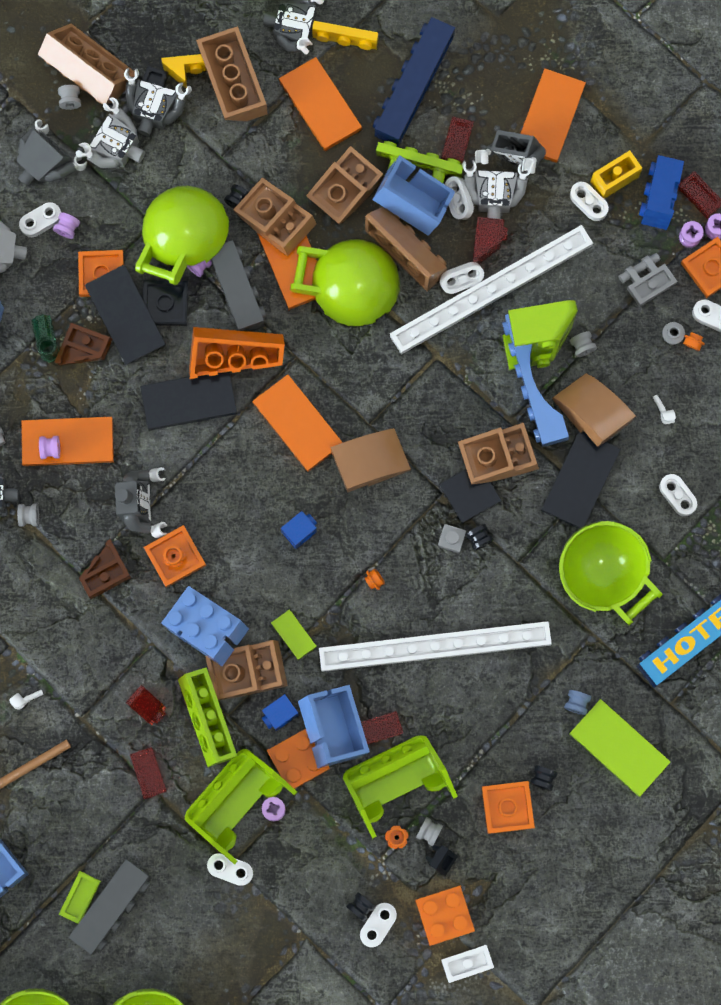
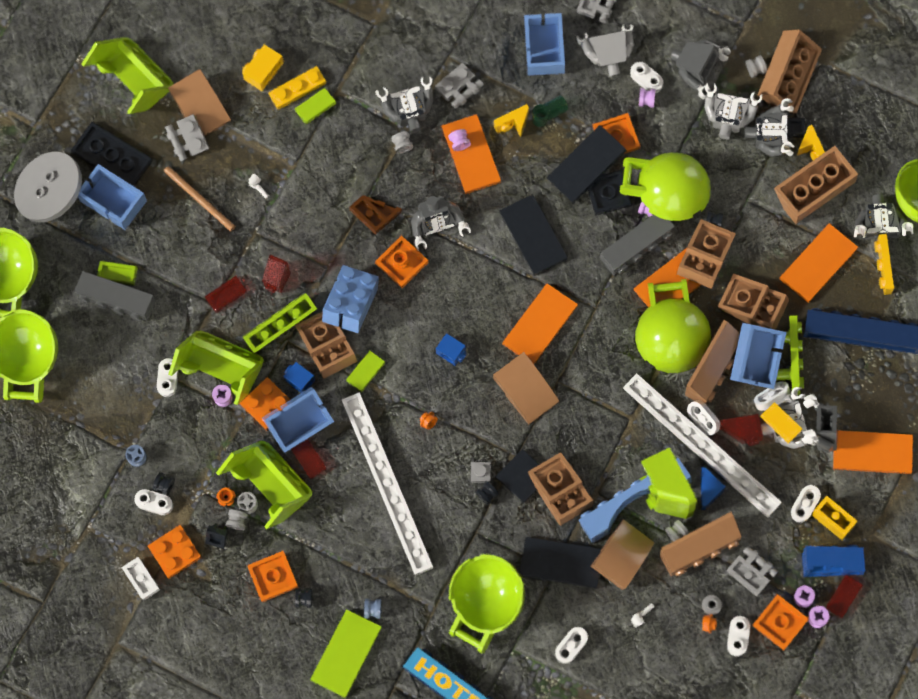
camera: 80 degrees right, 5 degrees down
(43, 376) = (517, 118): none -> yellow slope
(82, 346) = (551, 140): reddish brown wing -> none
(233, 350) = (581, 254): orange wedge -> none
(318, 929) = (134, 452): none -> sand blue wheel
(415, 813) = (247, 498): none -> light grey wheel
(457, 139) = (824, 382): clear red tile -> none
(496, 194) = (781, 422): none -> yellow tile
(541, 293) = (710, 488): none -> blue slope
(606, 323) = (700, 544): none -> medium nougat slope

